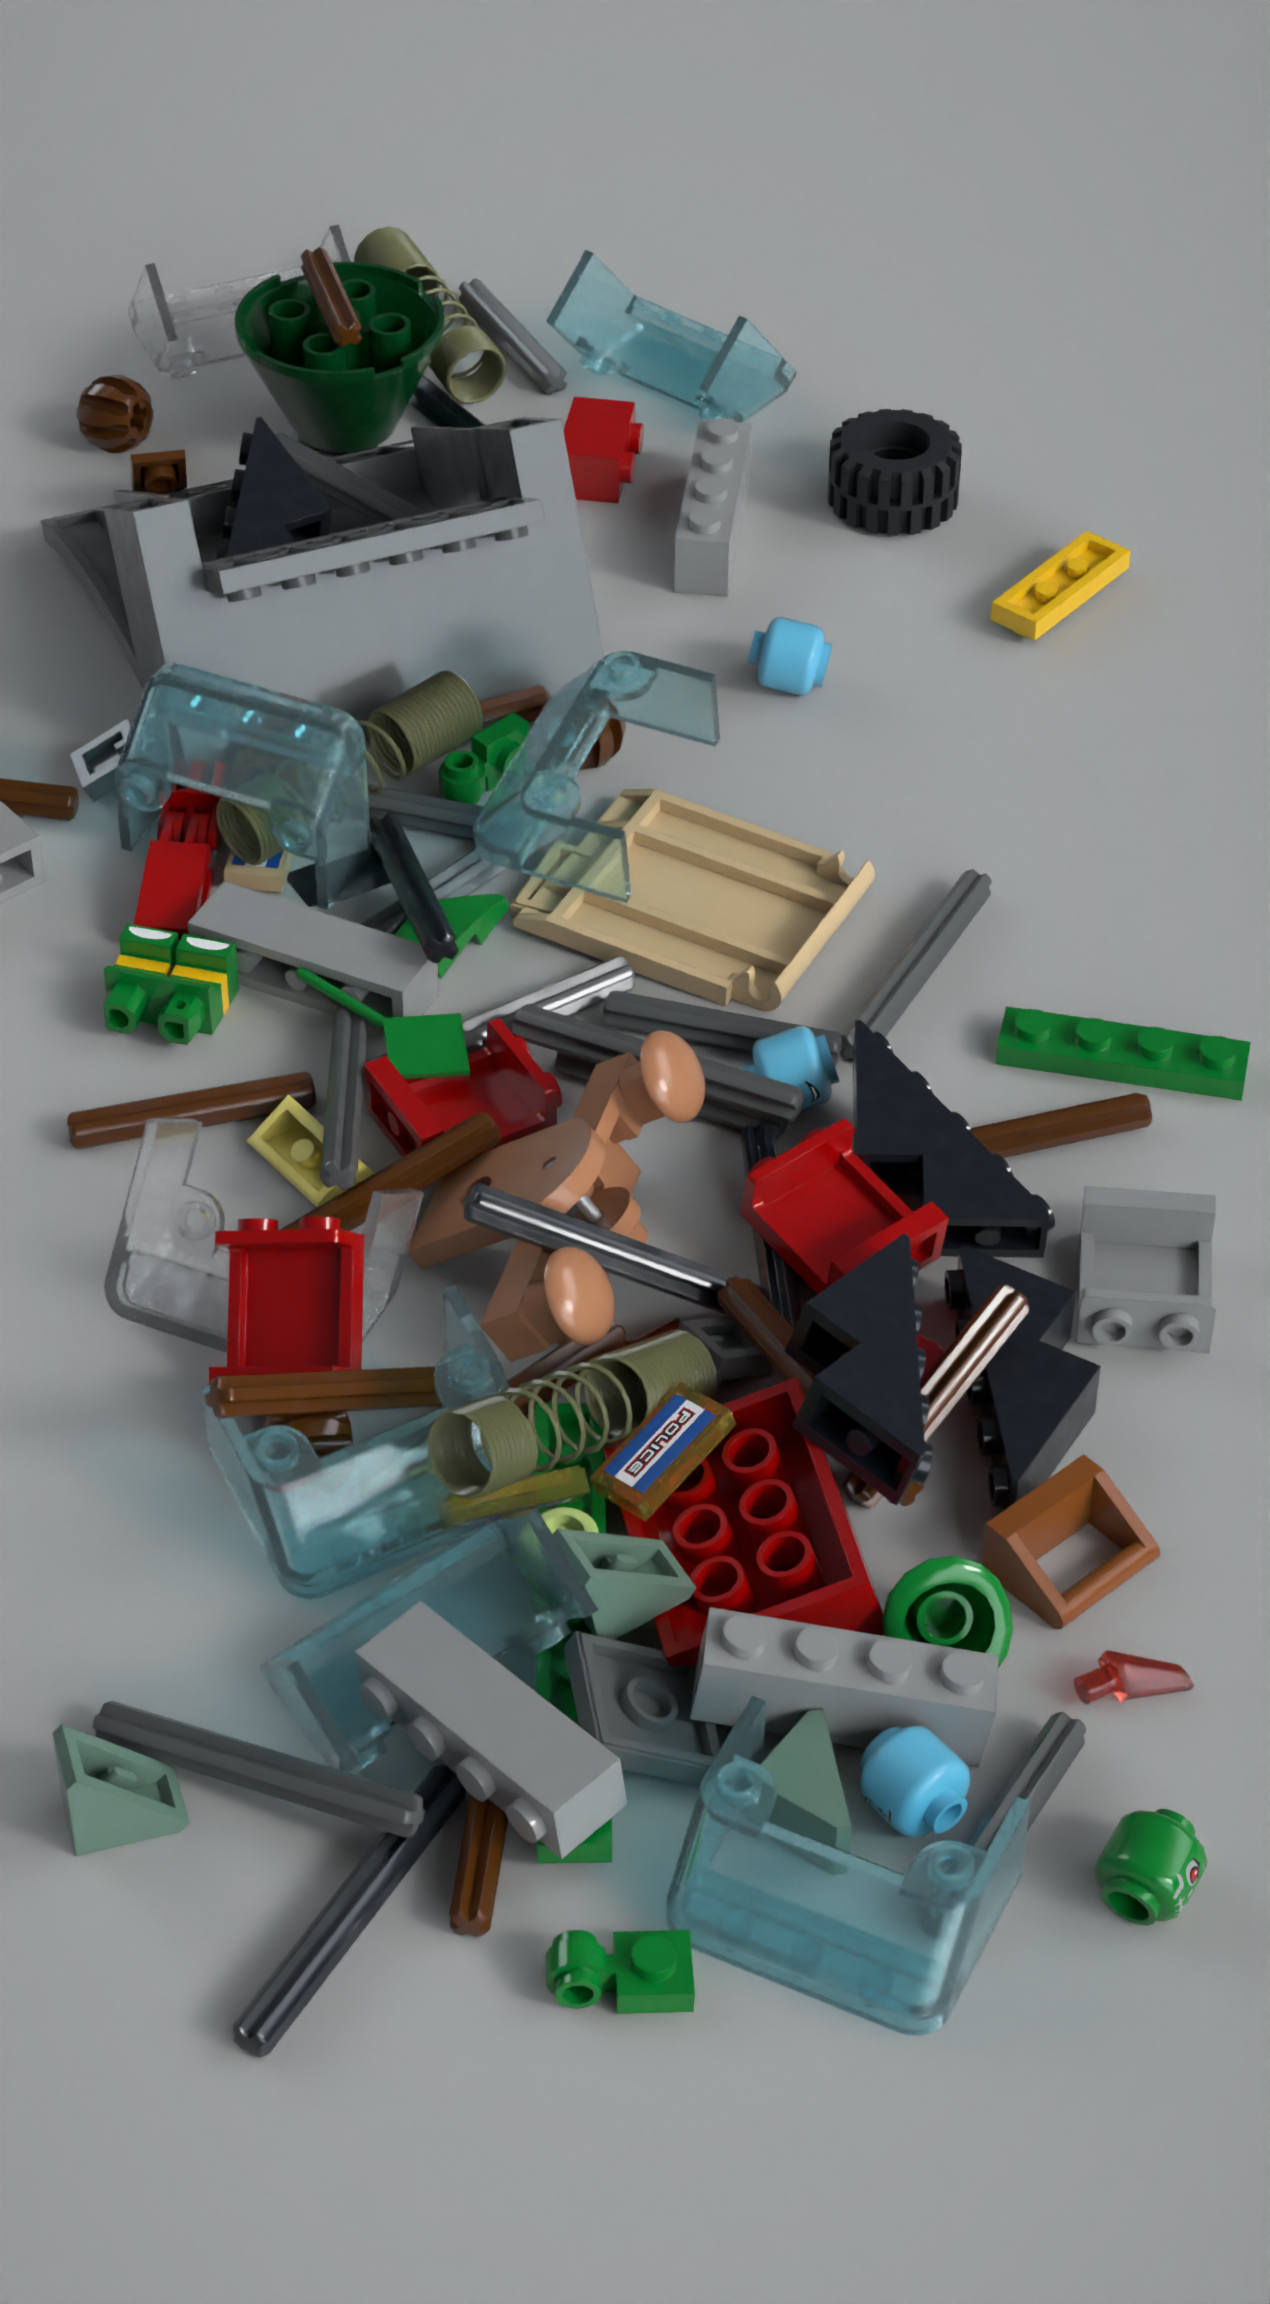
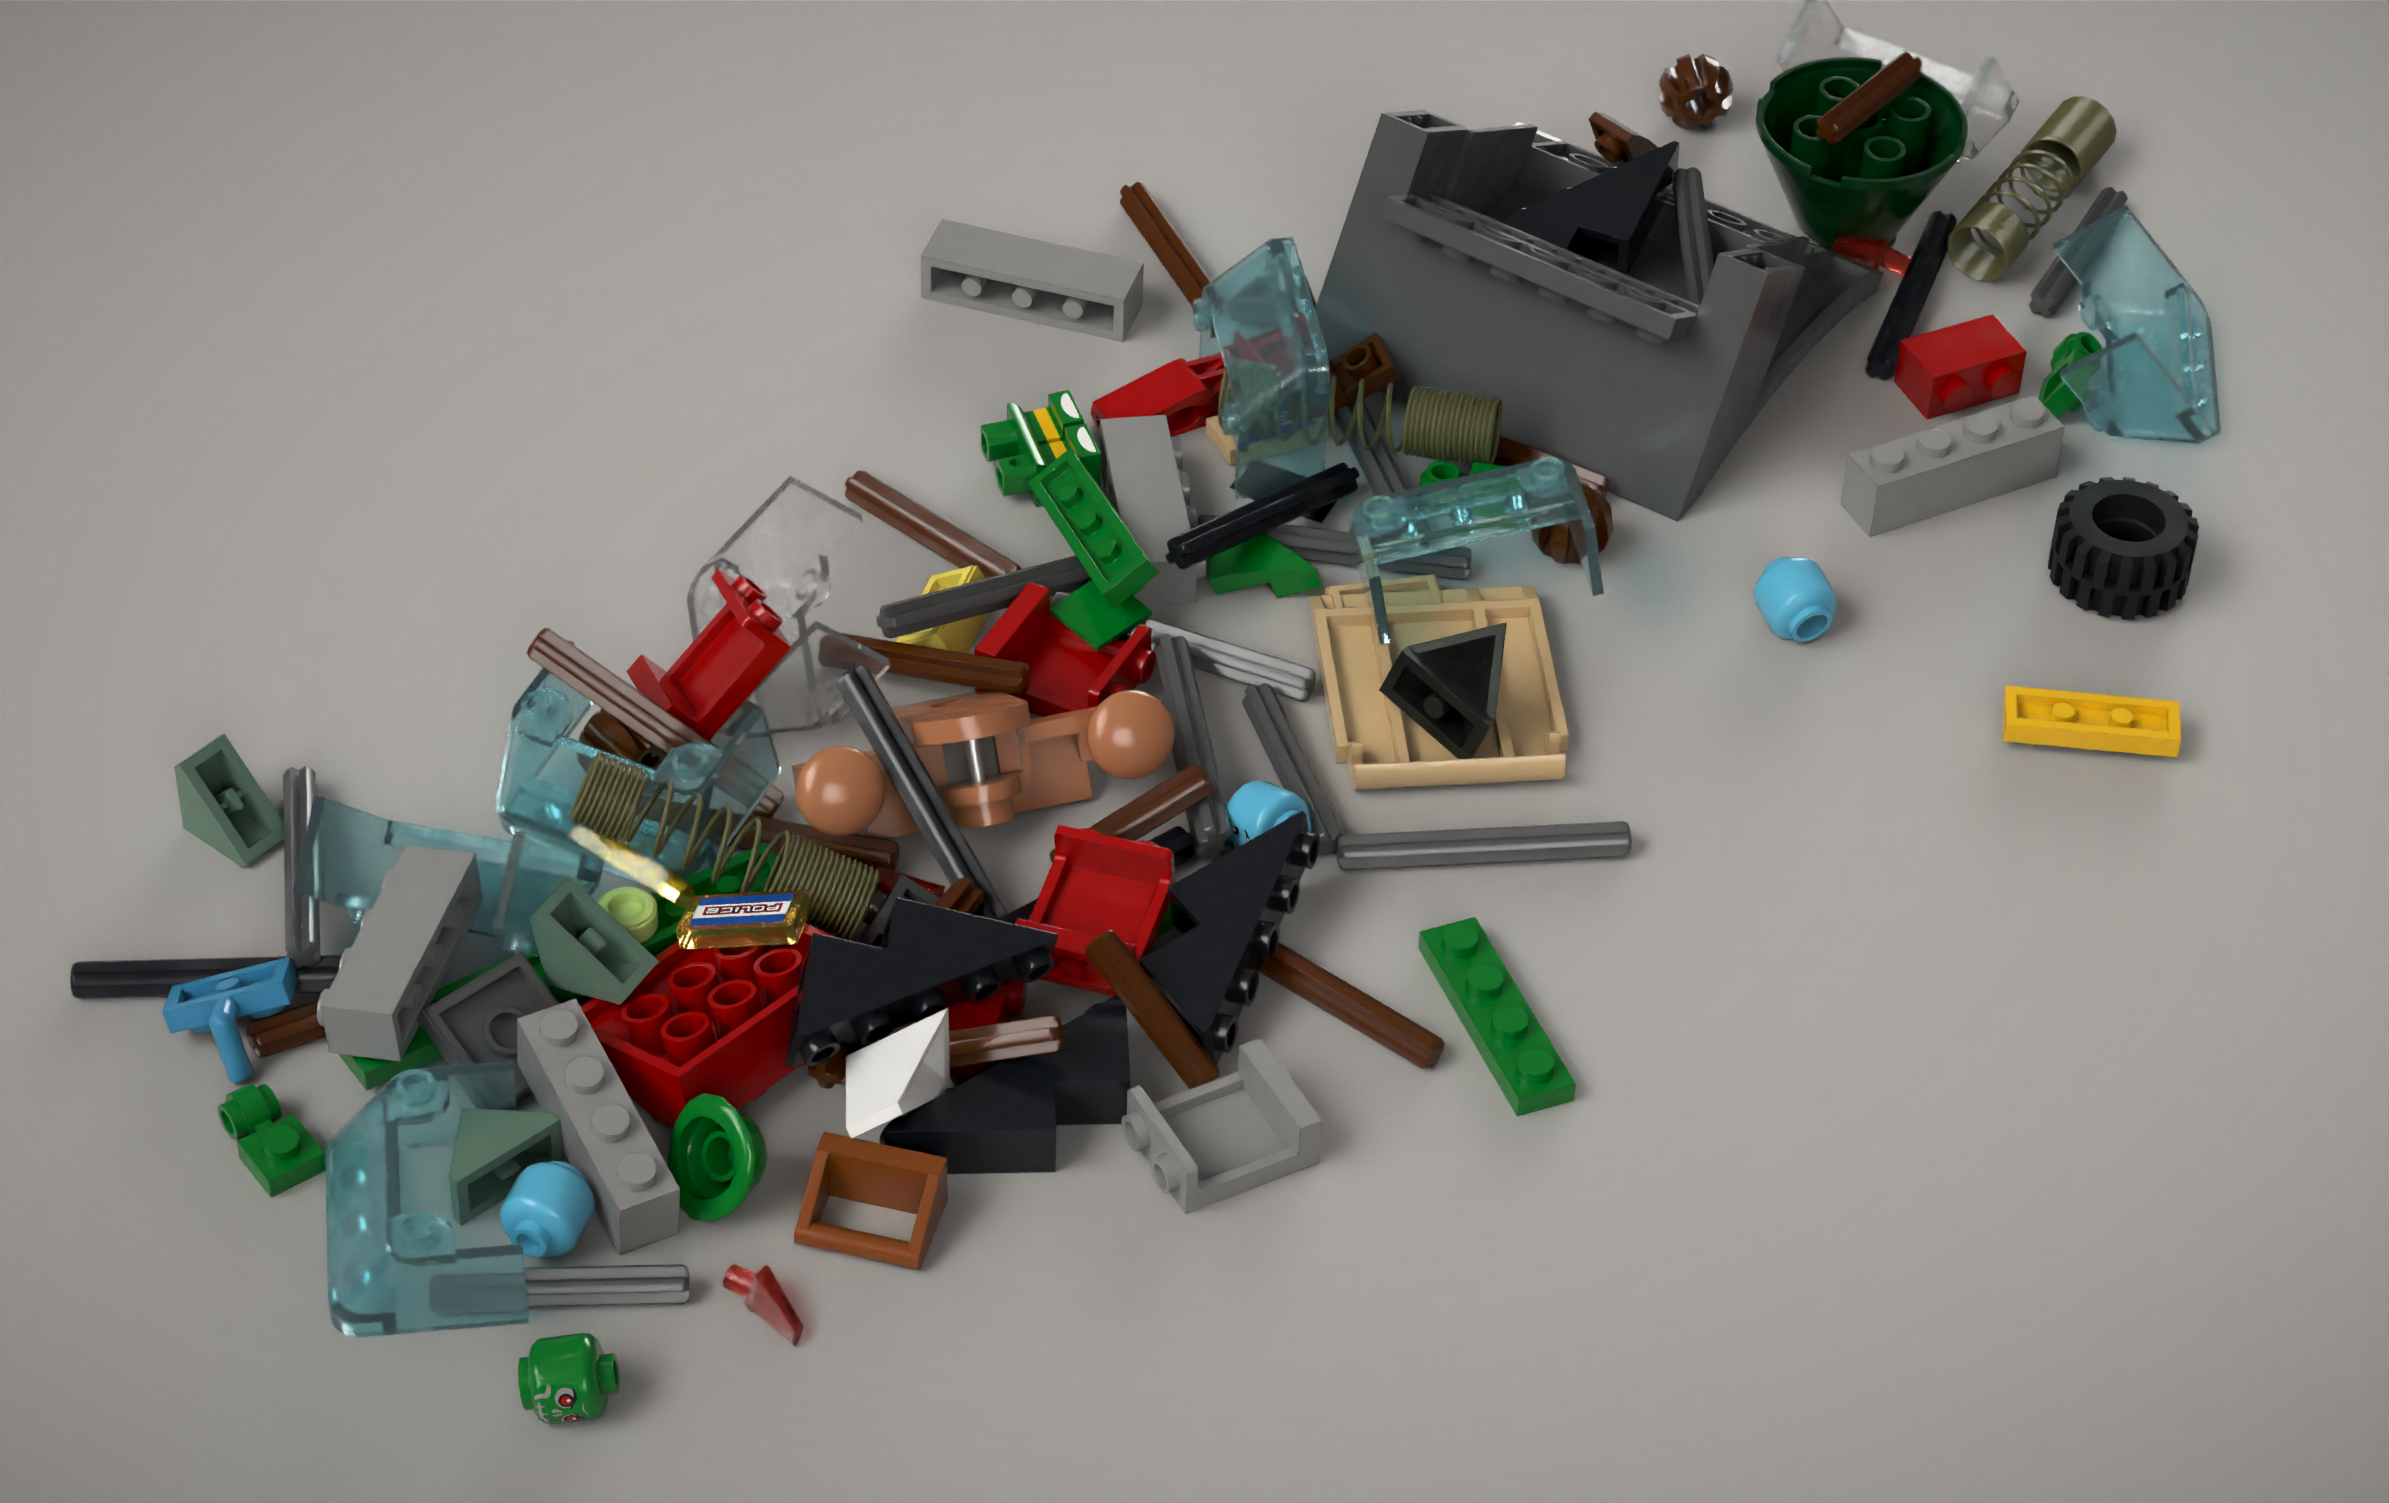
camera: 55 degrees right, 0 degrees up
(337, 989) = (1093, 528): none -> green plate
(414, 1903) = (221, 998): none -> dark azure plate
(425, 415) = (1872, 252): none -> clear red bar
(666, 406) = (2054, 392): none -> green plate
(732, 1147) = (1156, 805): none -> reddish brown axle
(755, 876) = (1451, 686): none -> pearl dark grey slope
(980, 1434) = (897, 1073): none -> white slope
(998, 1237) = (1151, 1010): none -> reddish brown axle

